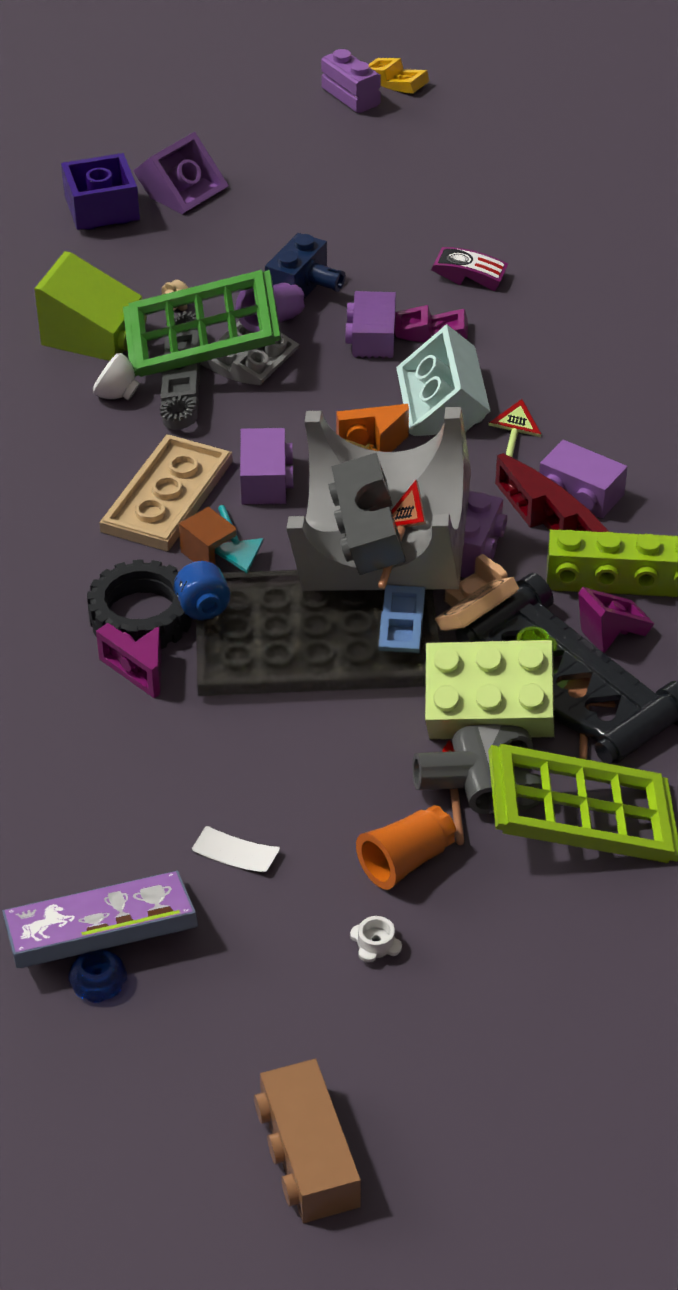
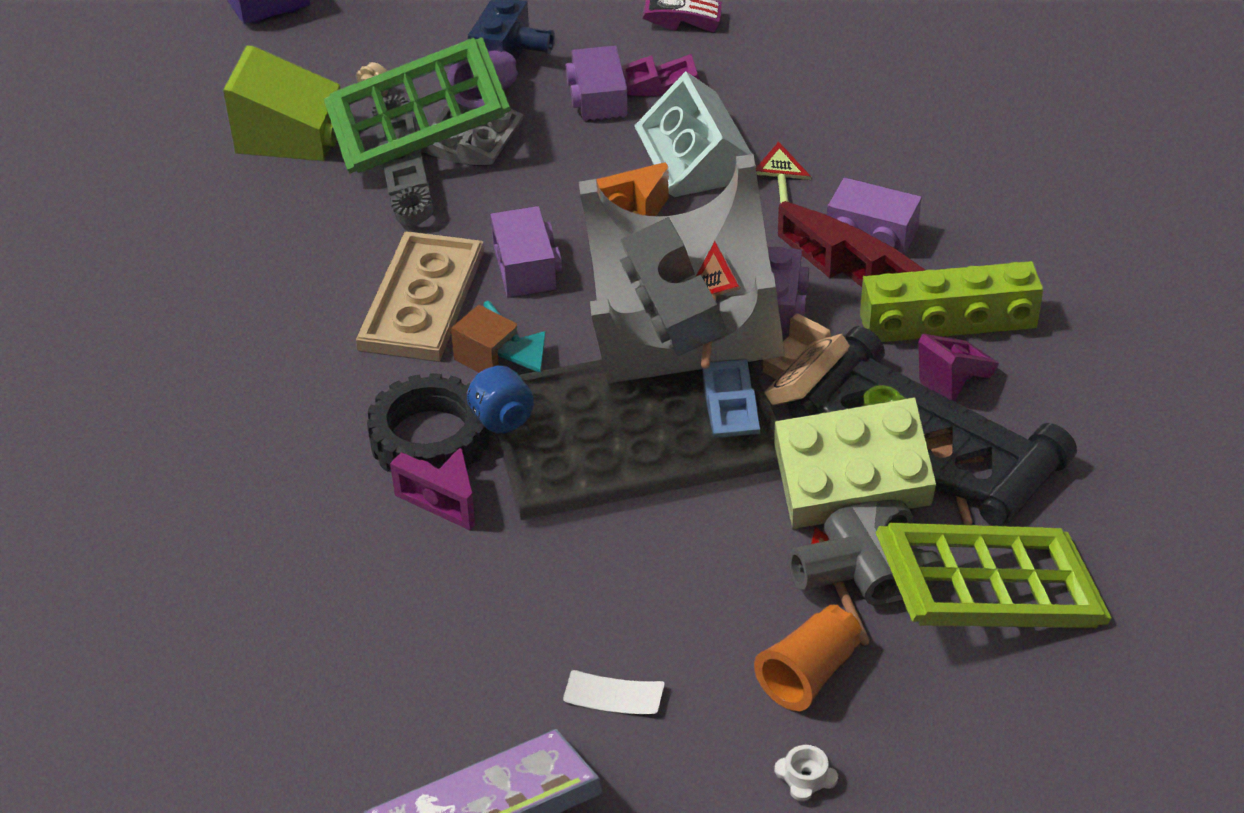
camera: 10 degrees left, 0 degrees up
(116, 379) = (334, 179): white brick -> none

